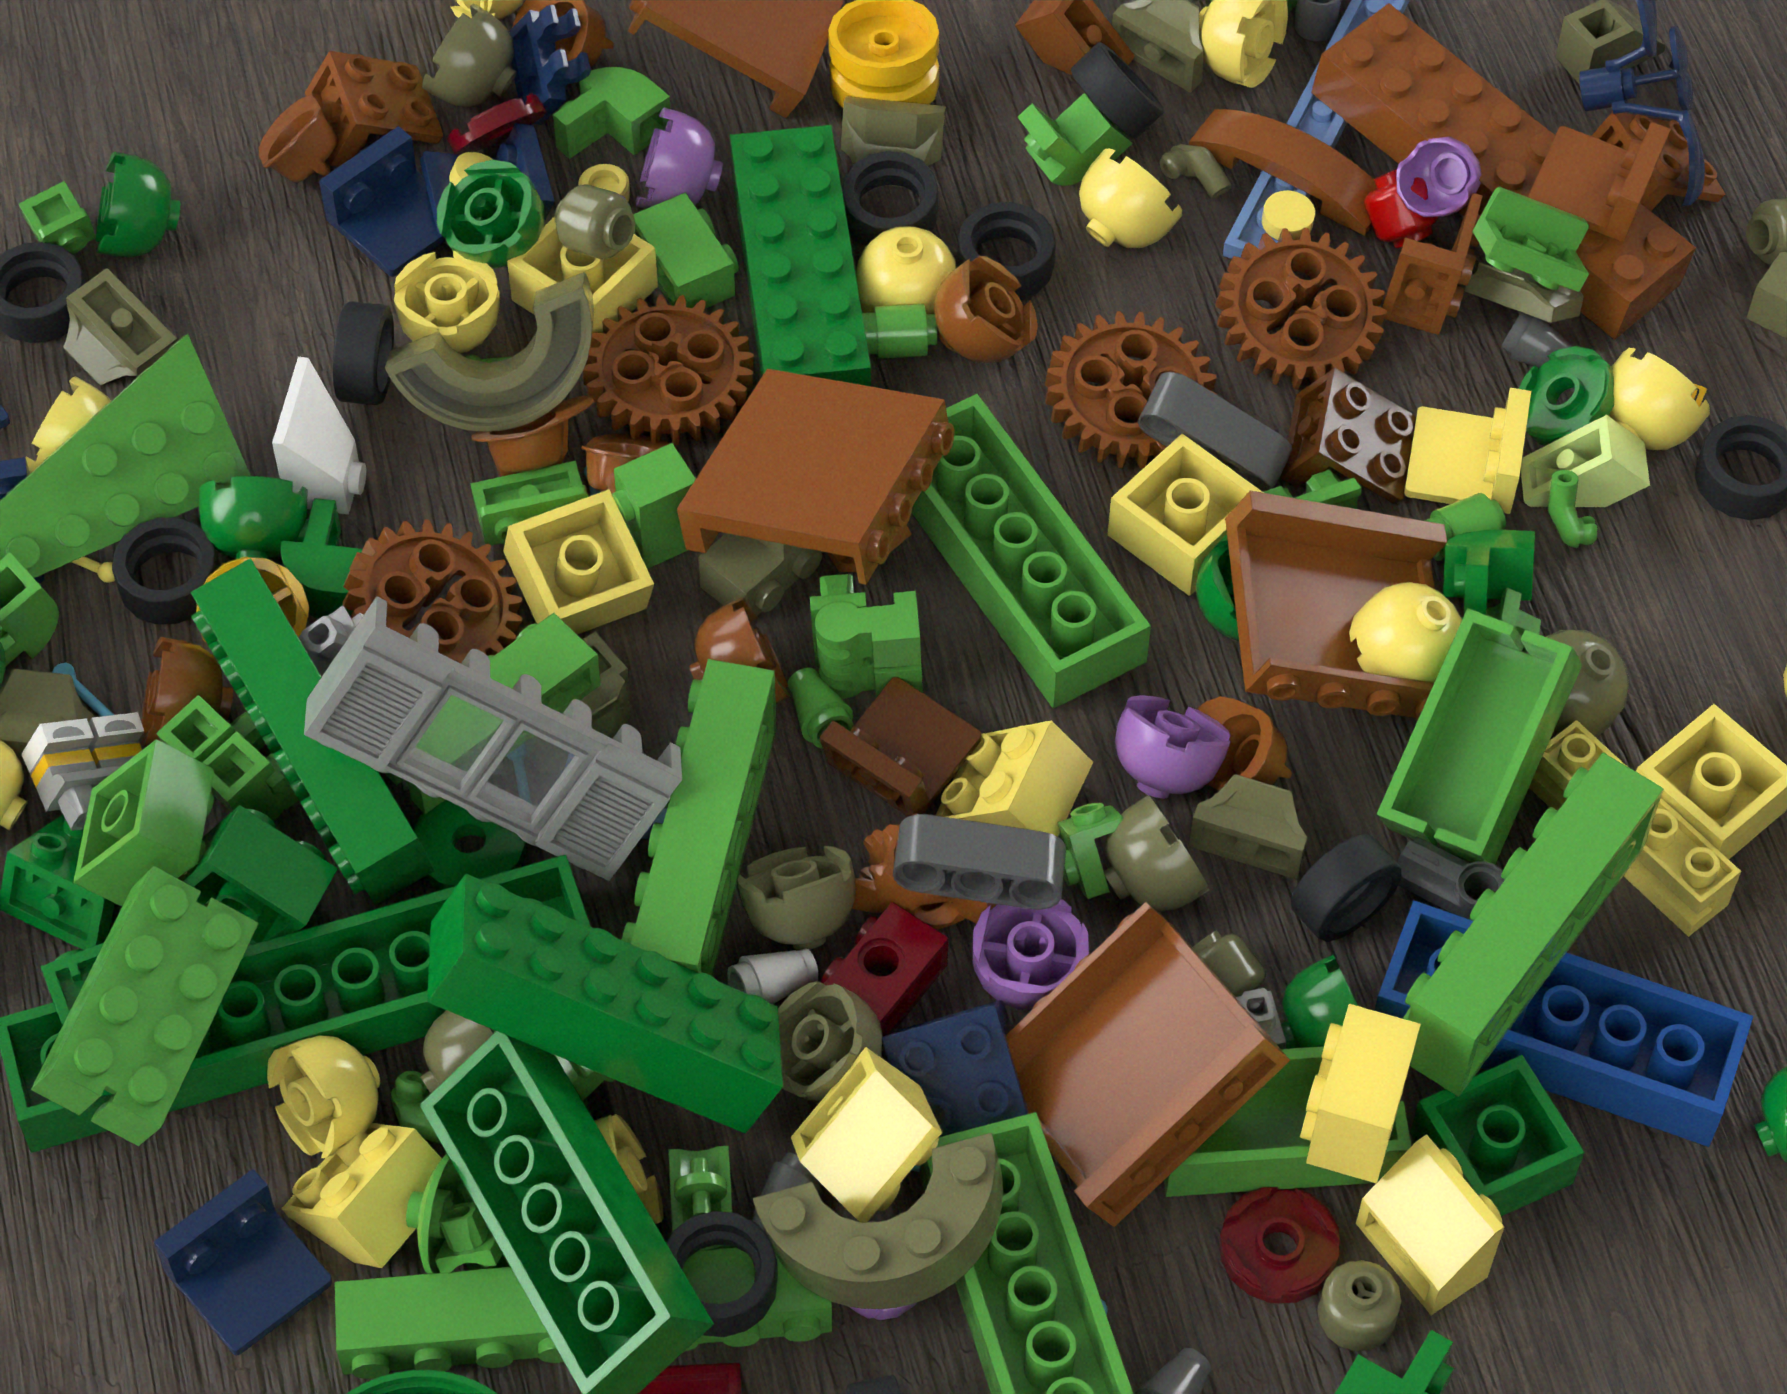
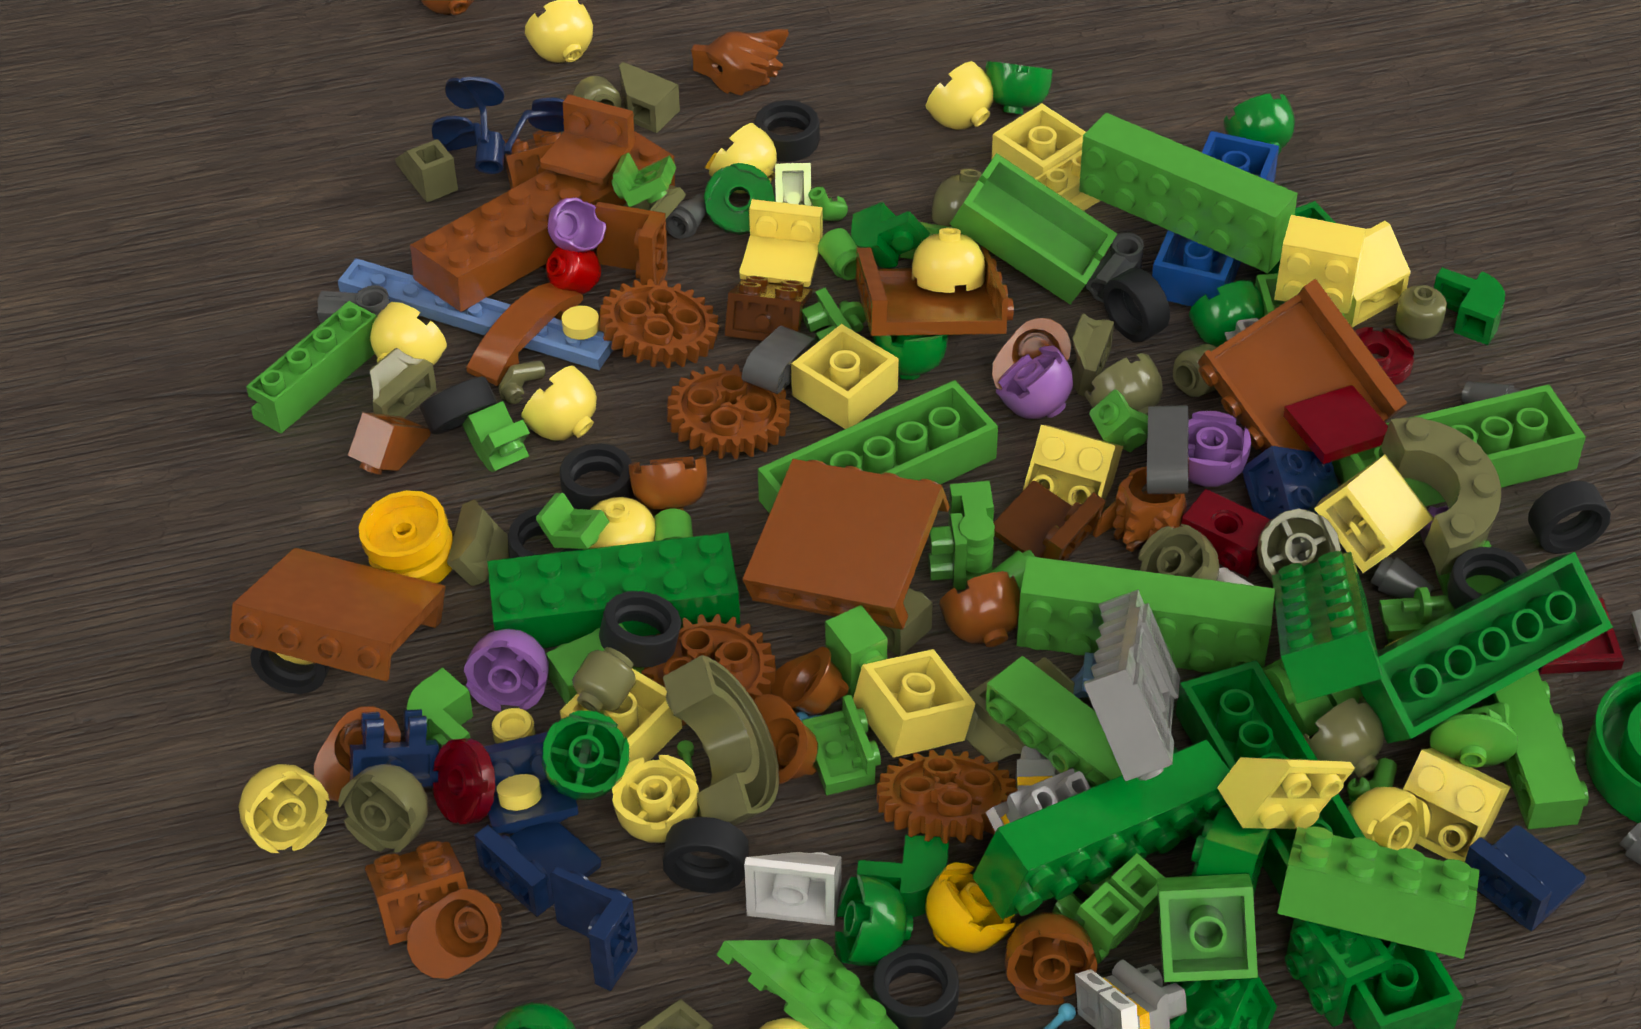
camera: 90 degrees left, 10 degrees down
(273, 266) = (602, 916): none -> dark blue bracket
(319, 907) = (1282, 791): none -> light yellow slope
(706, 235) = (647, 609): none -> black tyre
(886, 199) = (570, 526): none -> bright green bracket
(1046, 1106) = (1336, 424): none -> dark red tile

